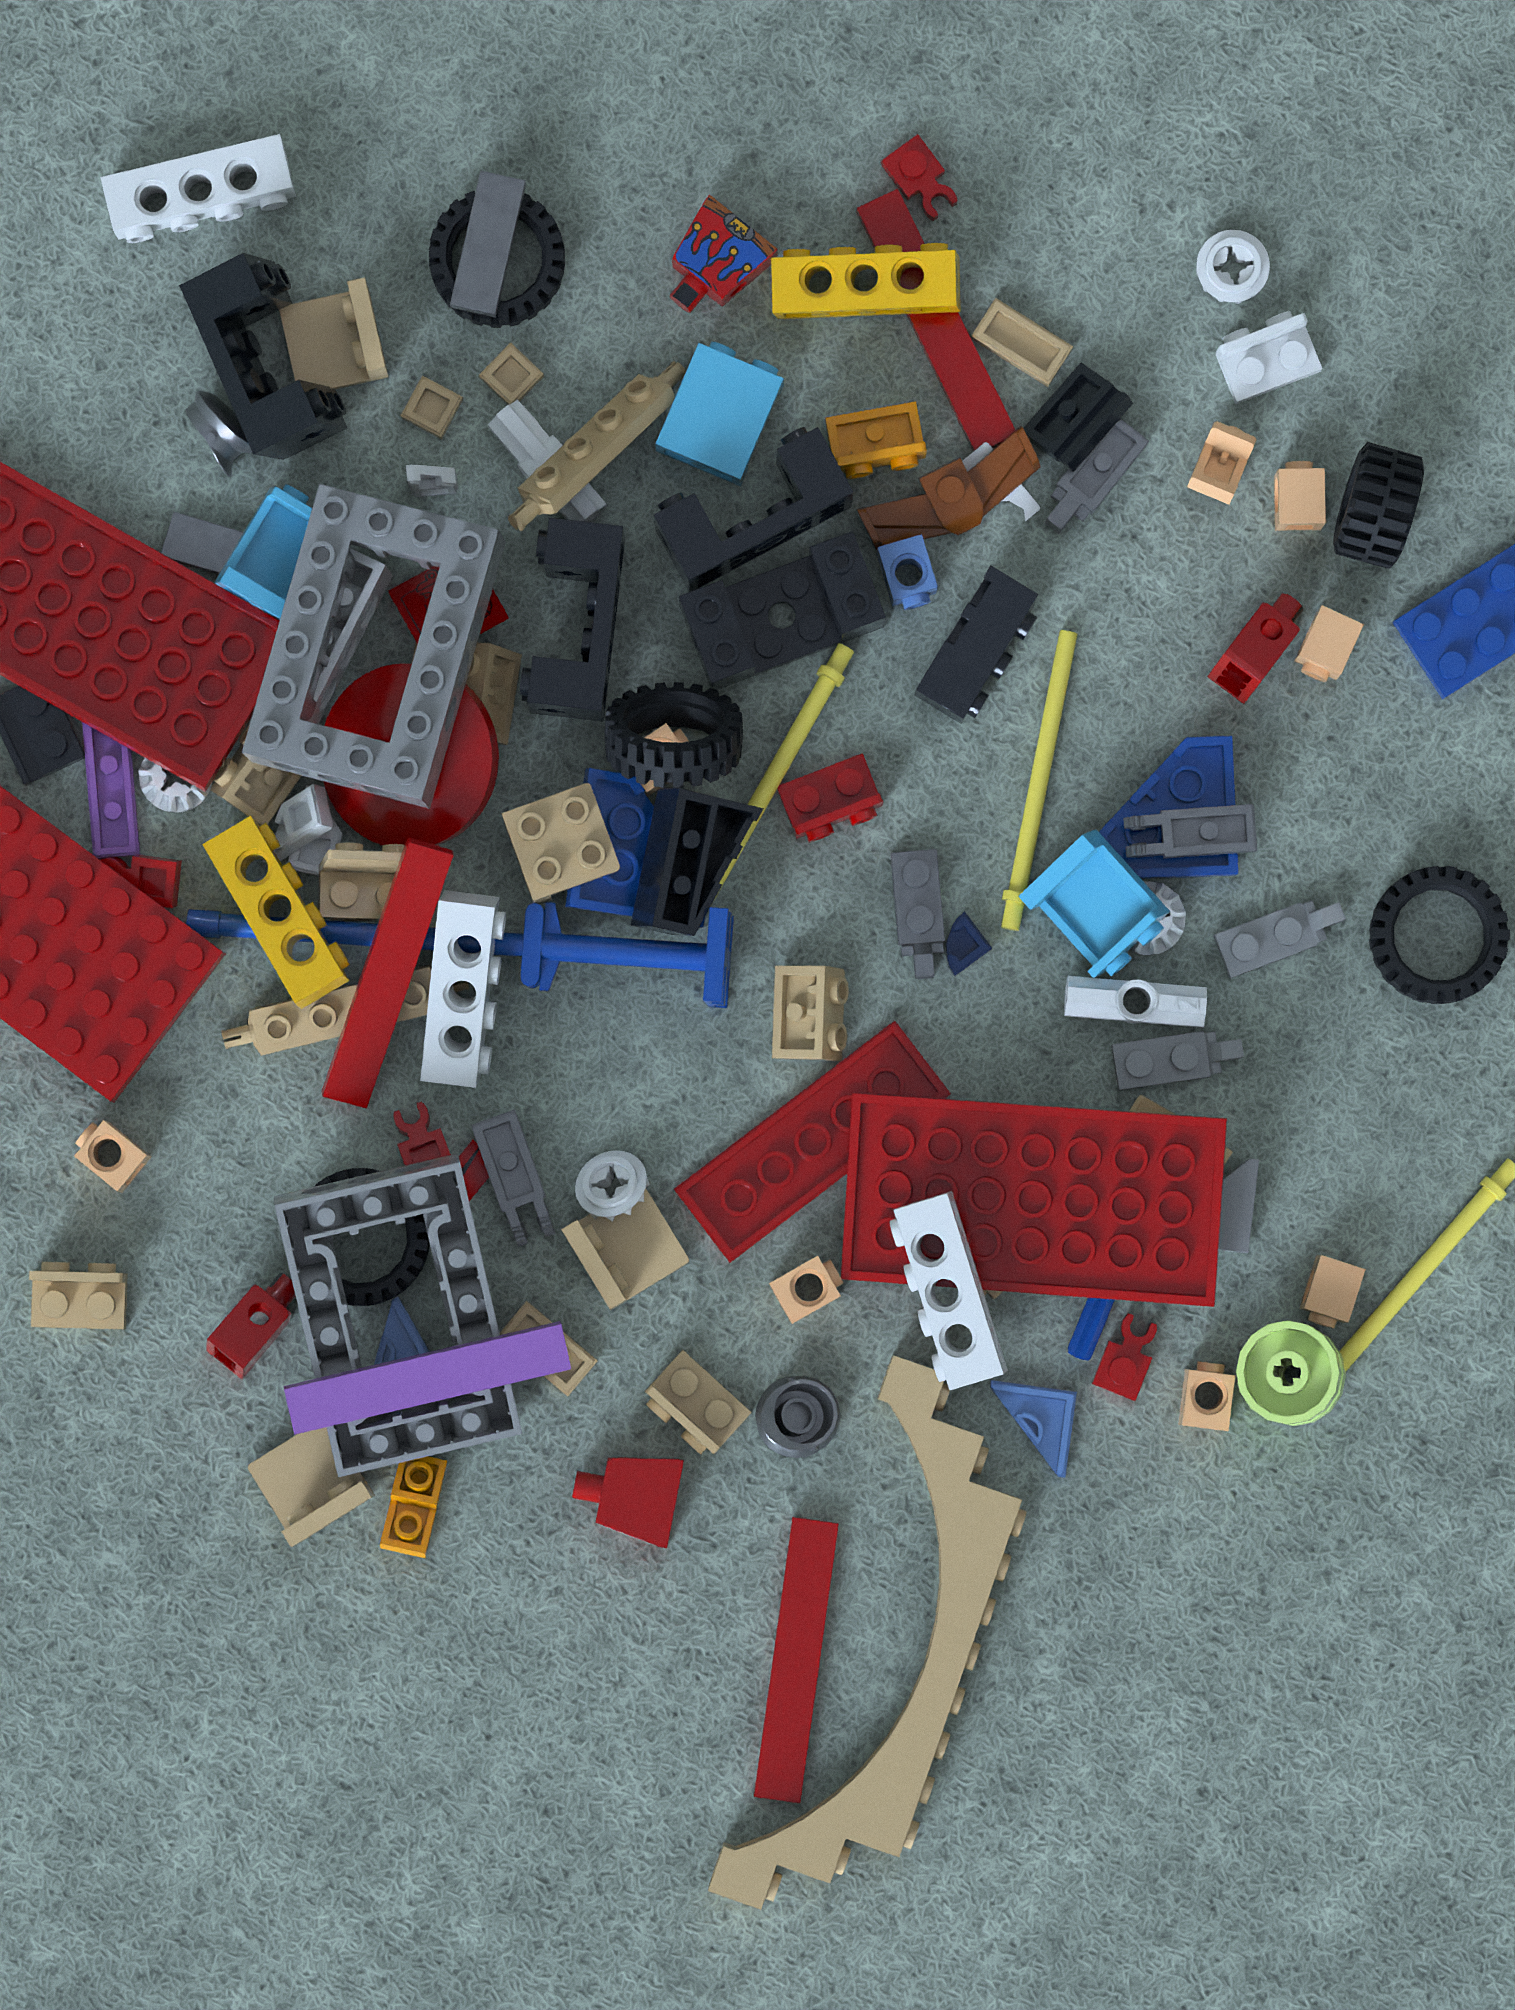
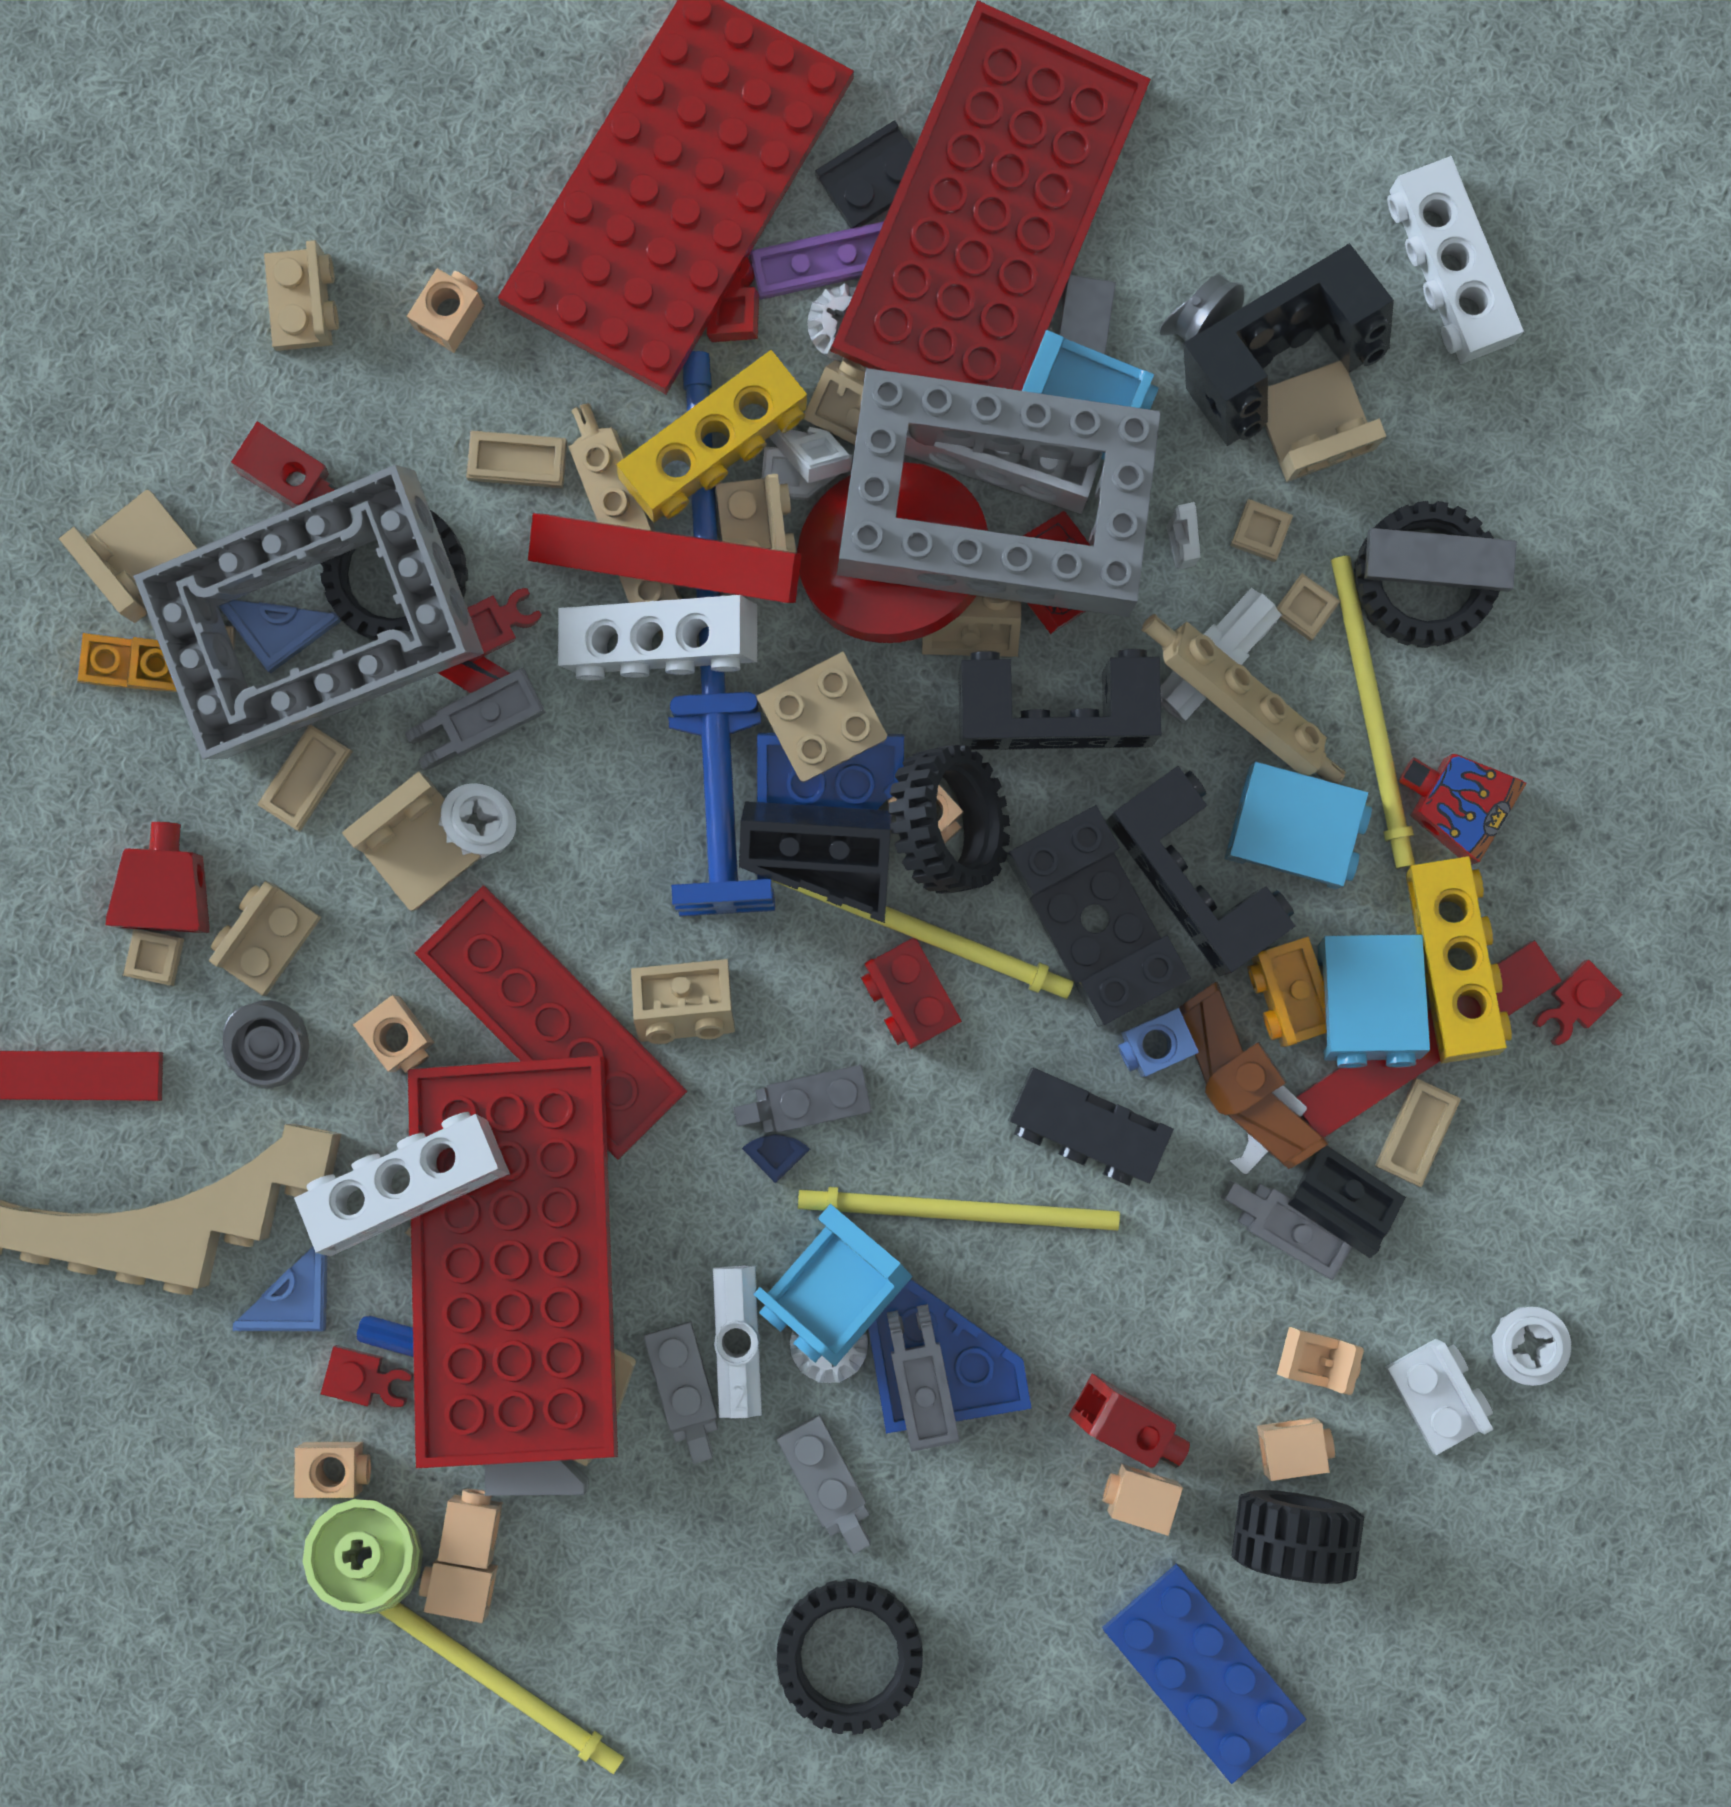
camera: 85 degrees right, 0 degrees up
(265, 1107) = (516, 459): none -> tan tile
(427, 1377) = (243, 651): medium lavender tile -> none
(620, 327) = (1398, 831): none -> light yellow bar
(700, 1513) = (153, 957): none -> tan tile
(893, 364) = (1374, 999): none -> medium azure panel
(1278, 1273) = (470, 1529): none -> light nougat brick

